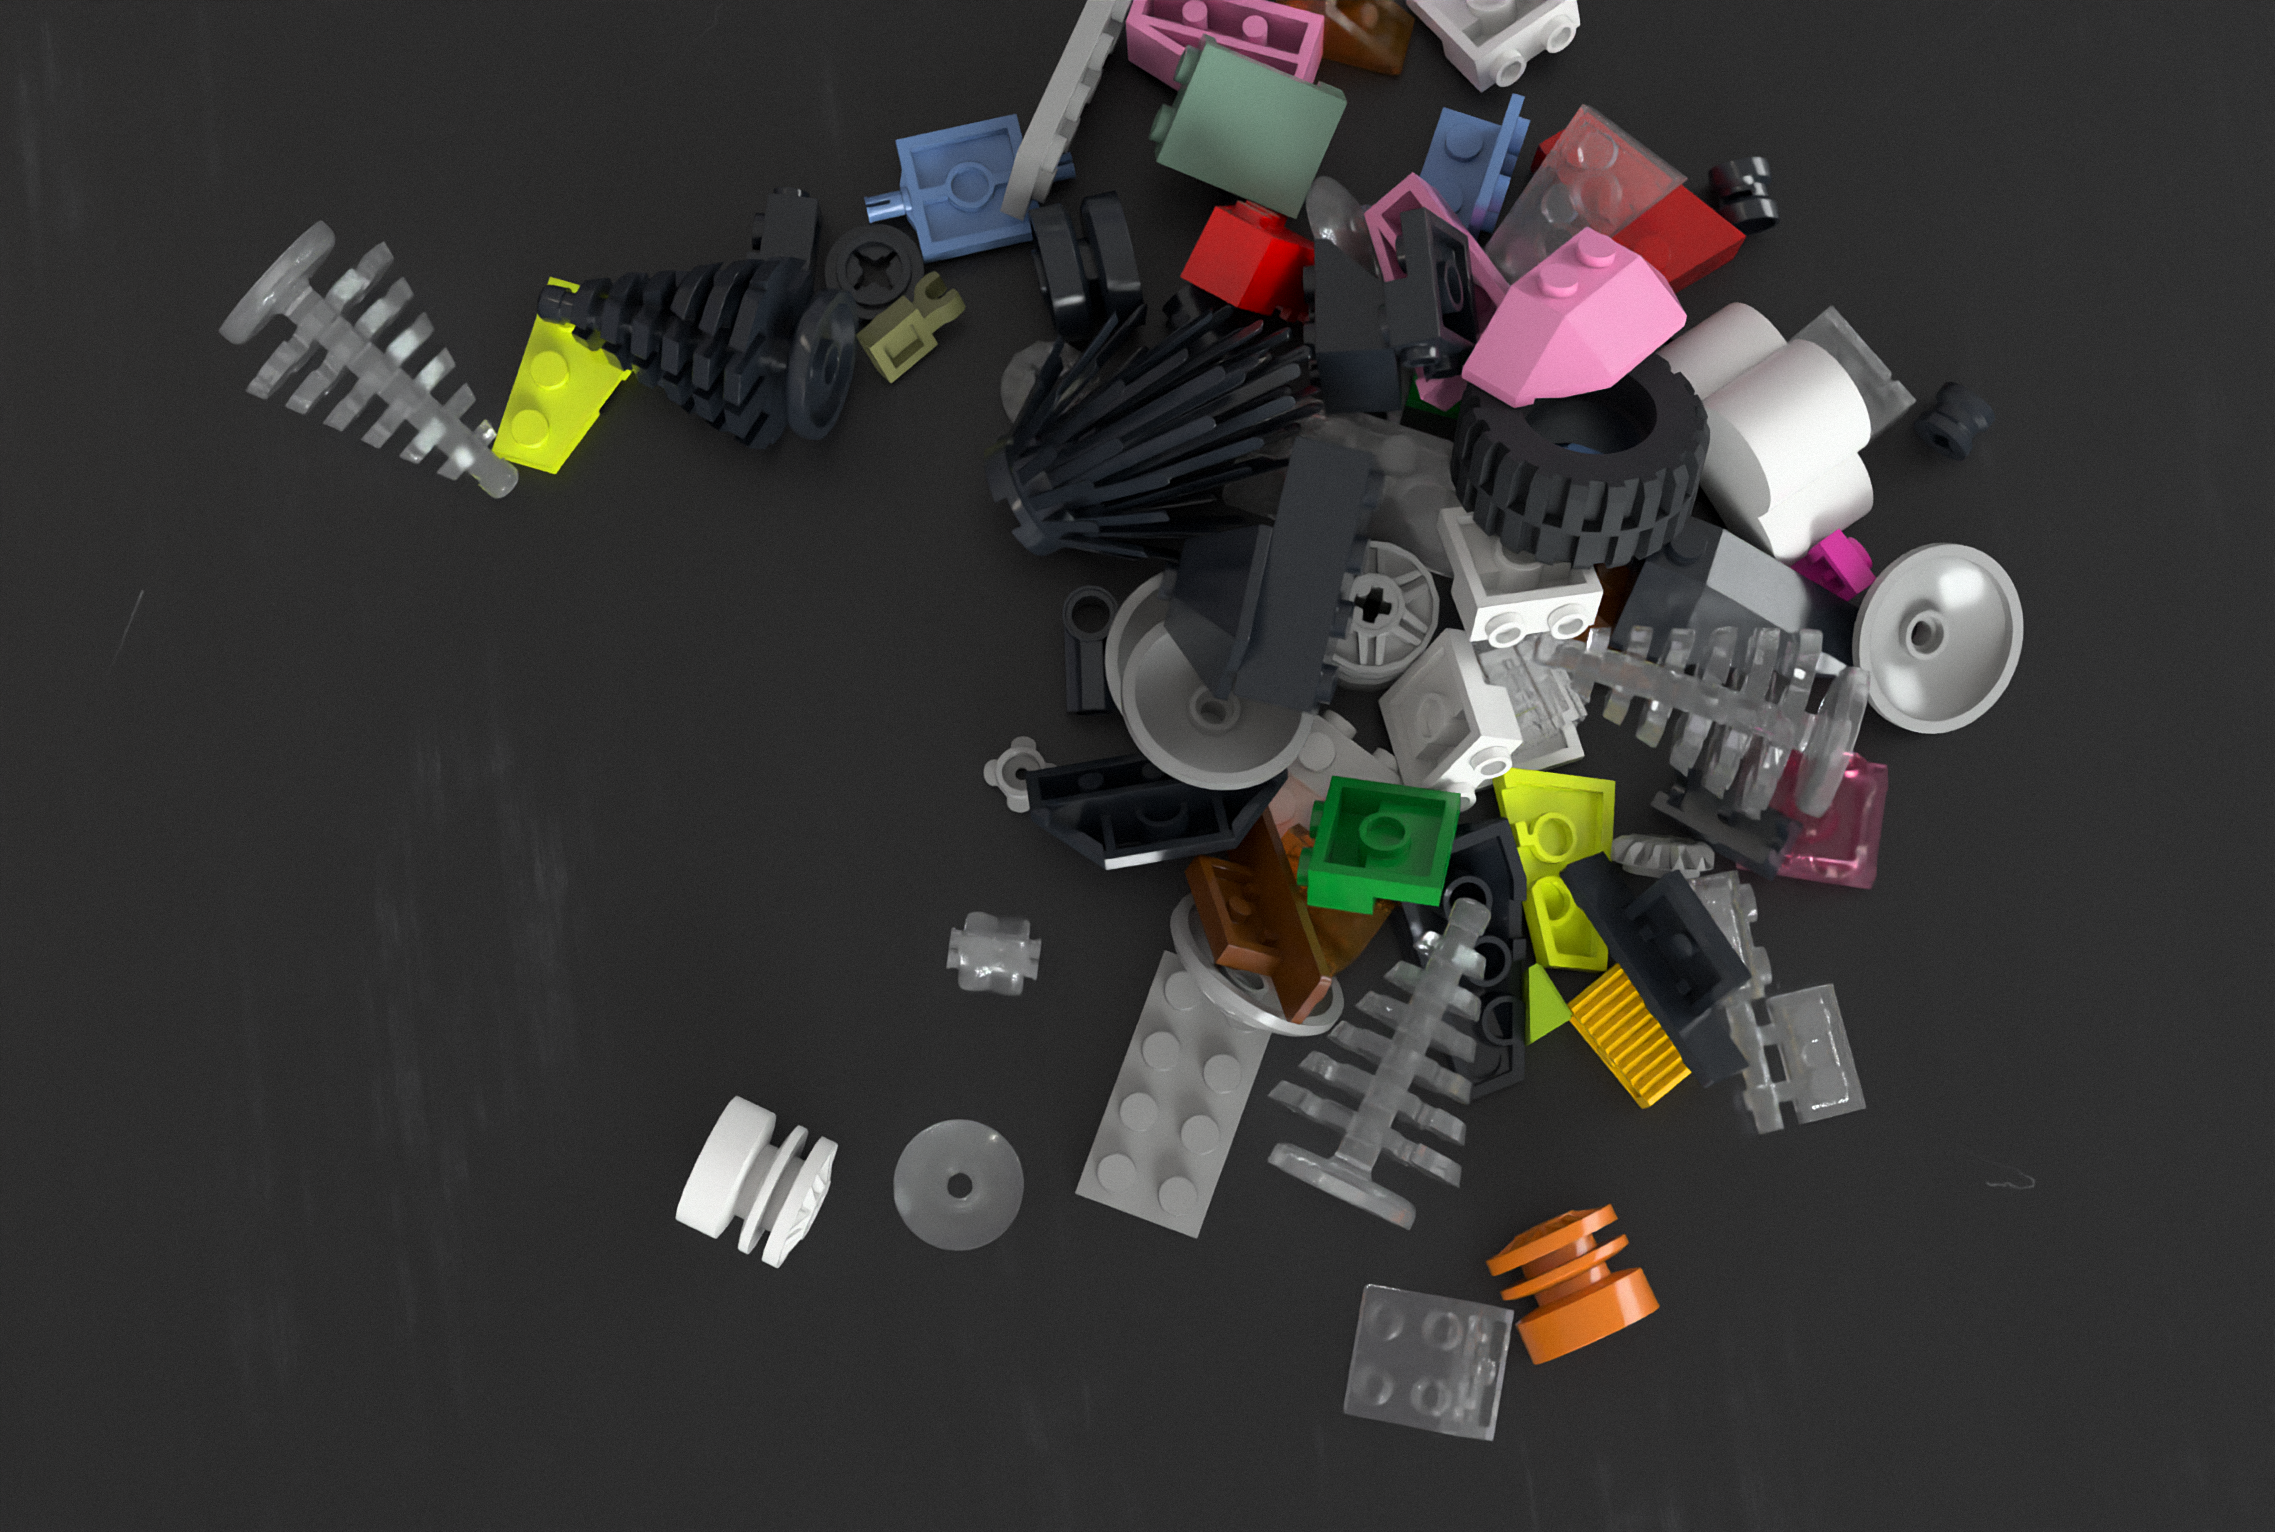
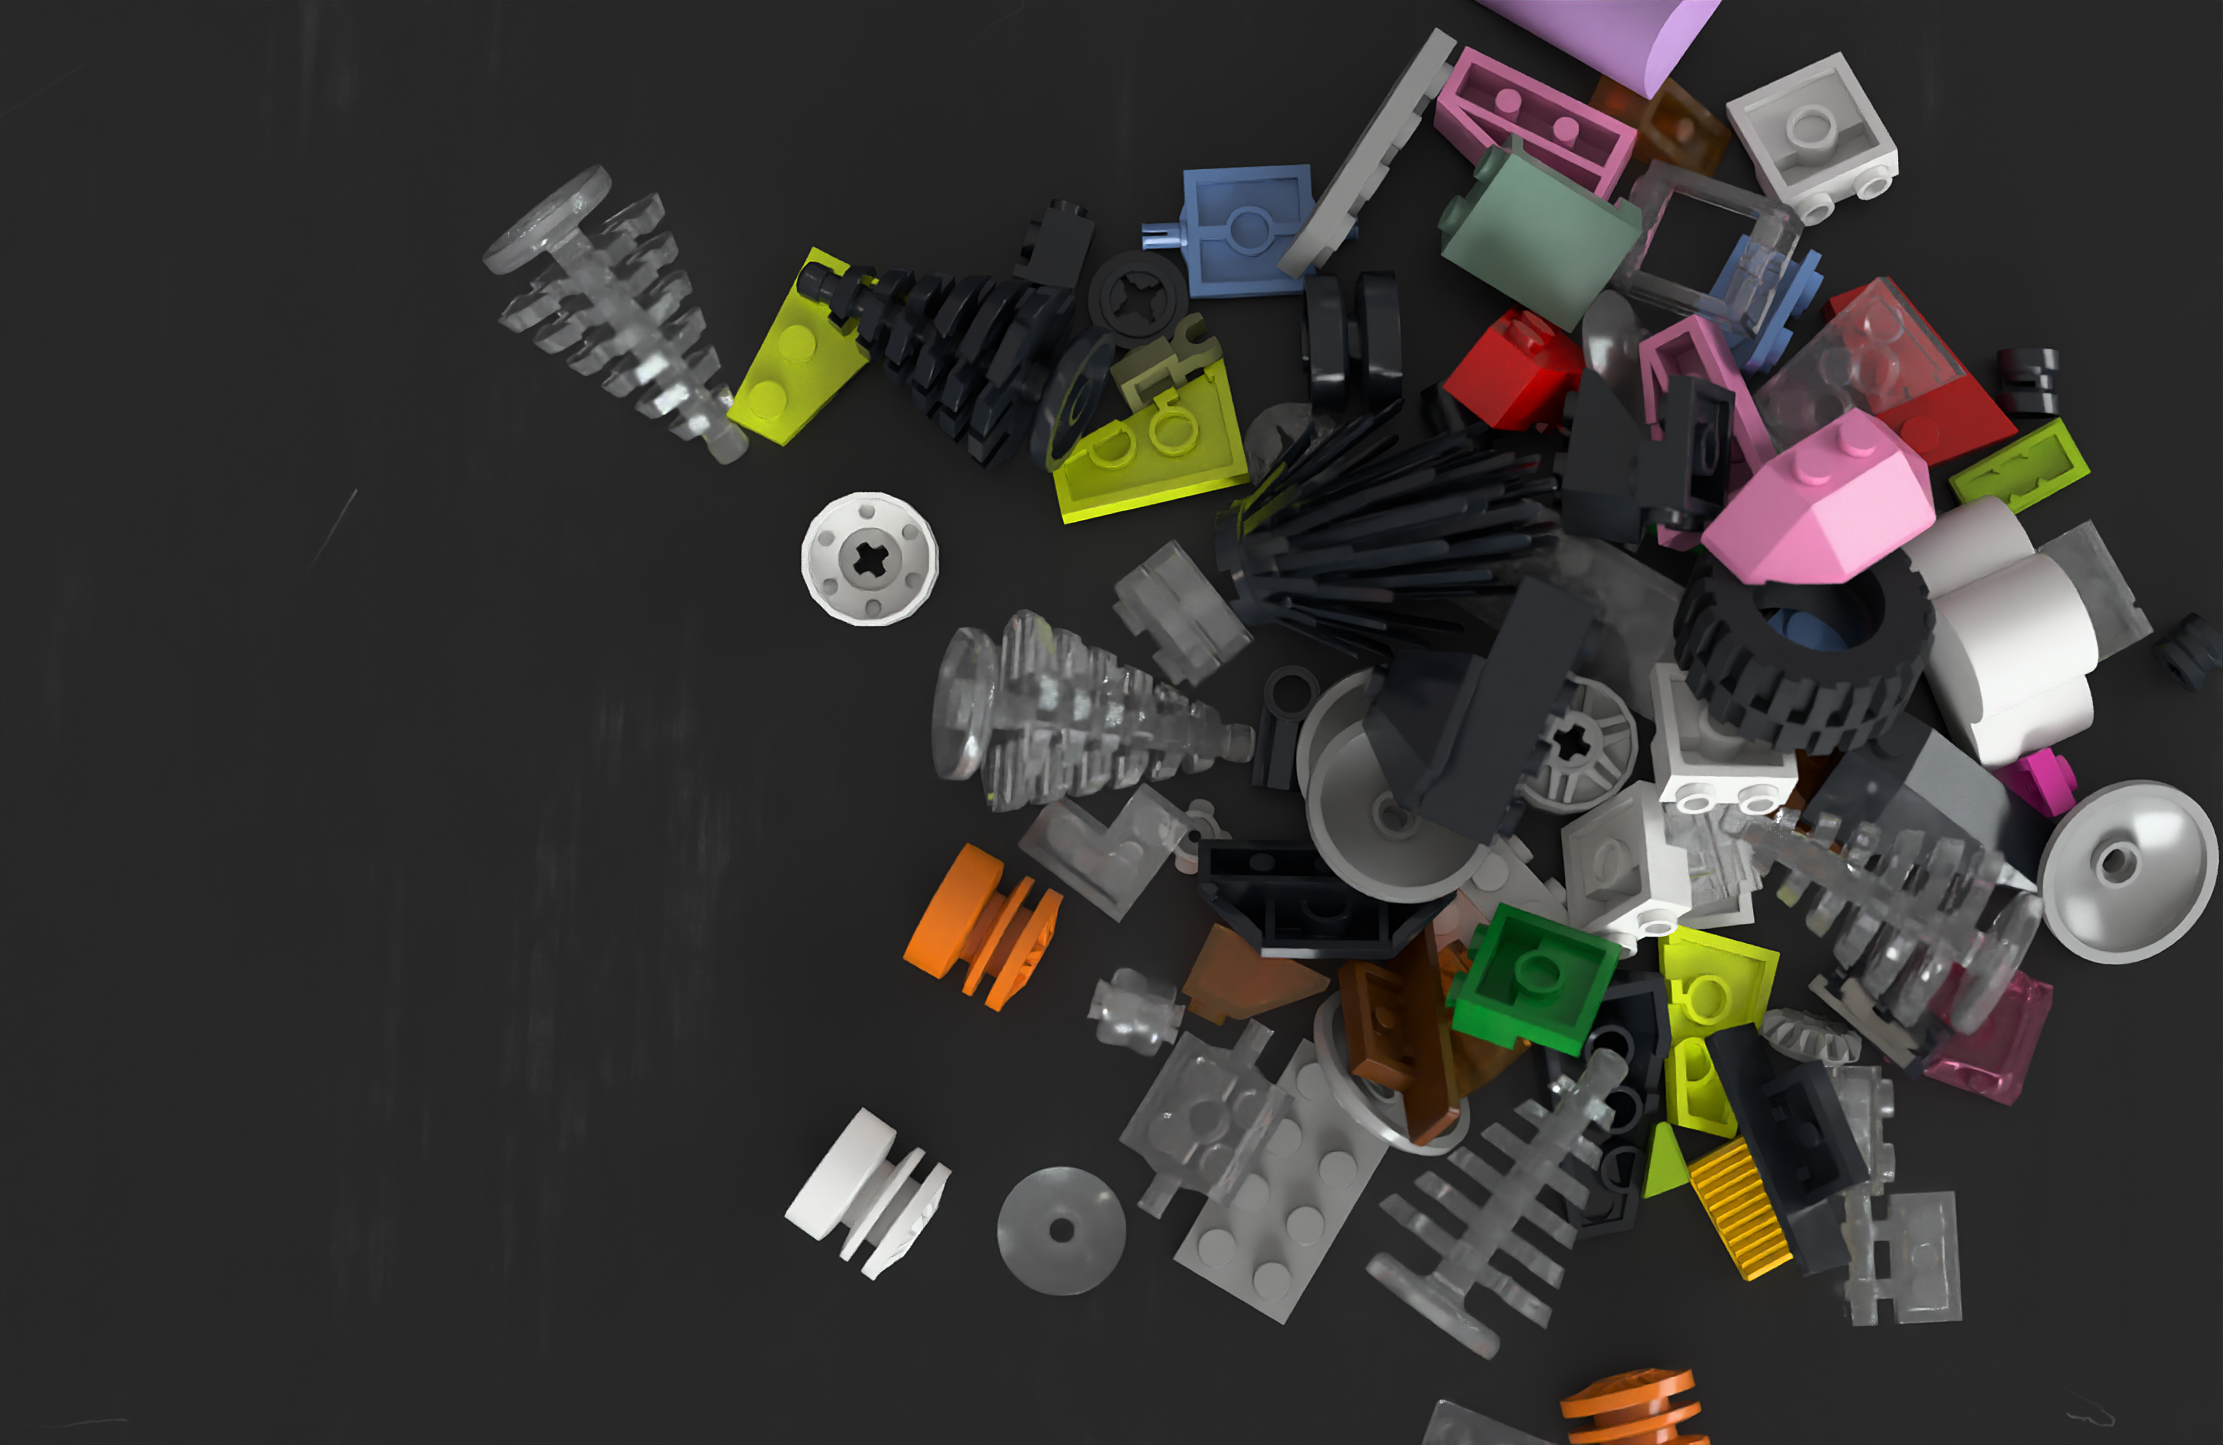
camera: 15 degrees right, 5 degrees up
(631, 528) = (833, 552): none -> white wheel
(826, 896) = (983, 927): none -> orange wheel
(871, 676) = (1064, 718): none -> clear plant
(923, 411) = (1160, 454): none -> neon yellow wing
(939, 813) = (1105, 863): none -> clear plate
(970, 562) = (1181, 615): none -> clear brick
(1082, 1046) = (1206, 1119): none -> clear plate
(1096, 904) = (1240, 983): none -> clear orange slope
(1464, 134) = (1759, 266): none -> clear window
(1758, 277) = (2024, 469): none -> lime plate

